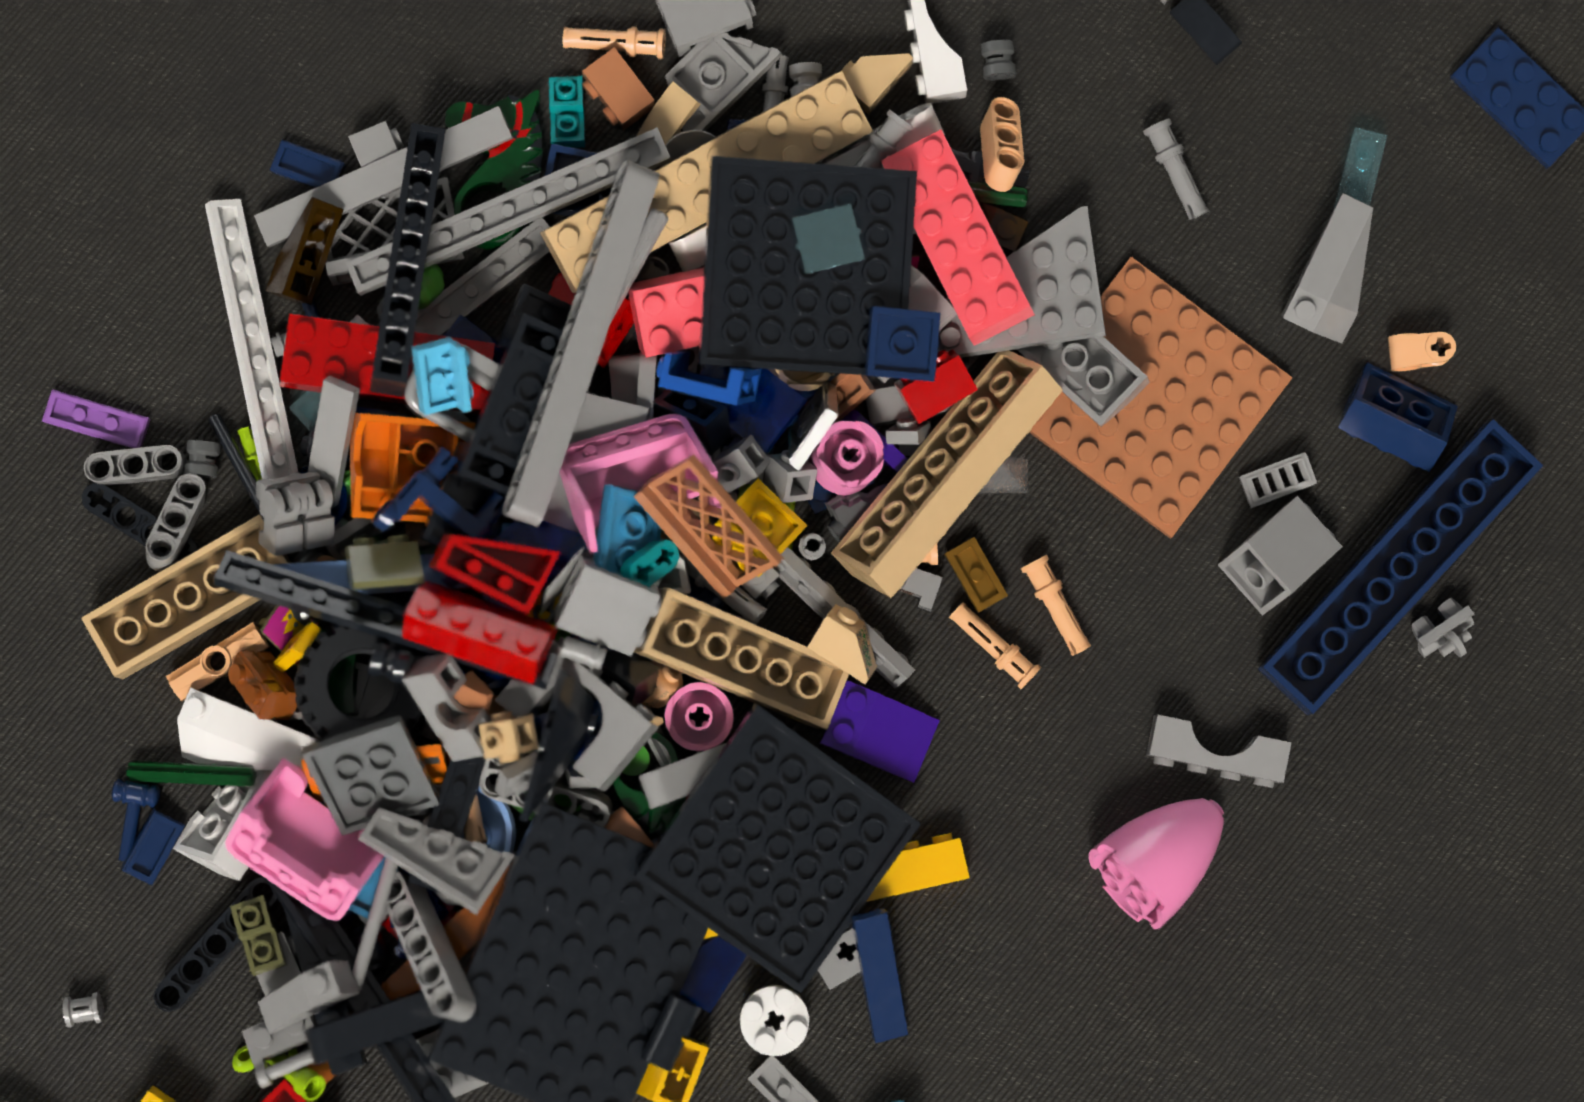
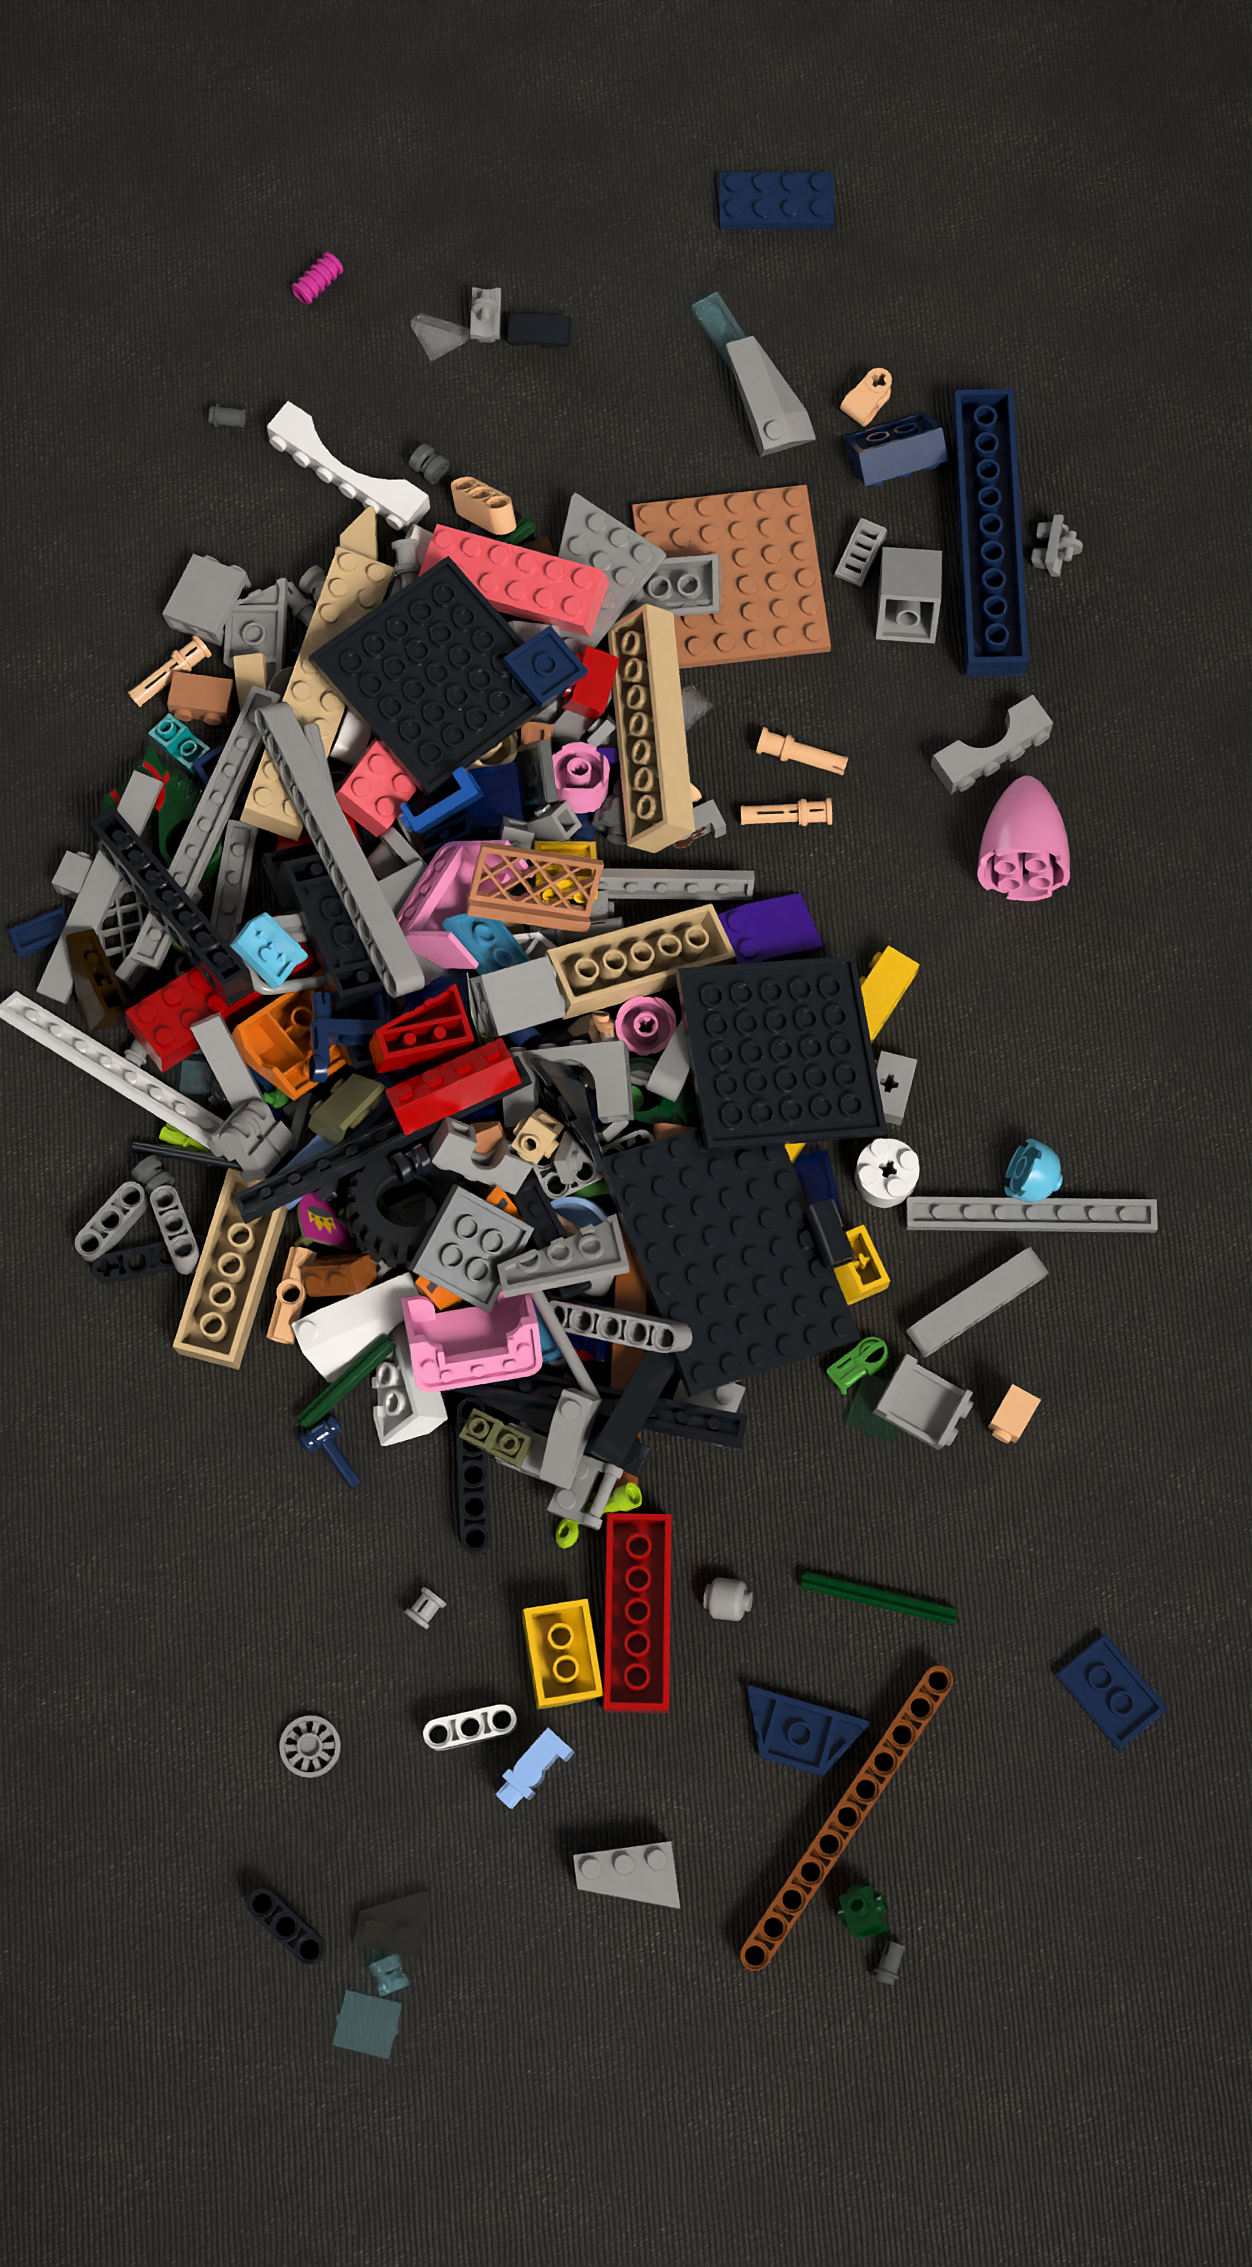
camera: 40 degrees left, 10 degrees down
(96, 419) = (54, 1221): medium lavender tile -> none
(152, 847) = (366, 1457): dark blue tile -> none
(296, 647) = (338, 1224): yellow tile -> none
(583, 653) = (533, 1039): light grey pin -> none
(646, 558) = (514, 947): teal beam -> none
(814, 538) = (611, 853): light grey pin -> none
(828, 238) = (433, 643): clear light blue piece -> none
(845, 643) = (692, 890): tan slope -> none
(879, 975) = (925, 1077): dark blue tile -> none
(976, 574) = (732, 781): pearl gold plate -> none
(1170, 155) = (594, 424): light grey pin -> none

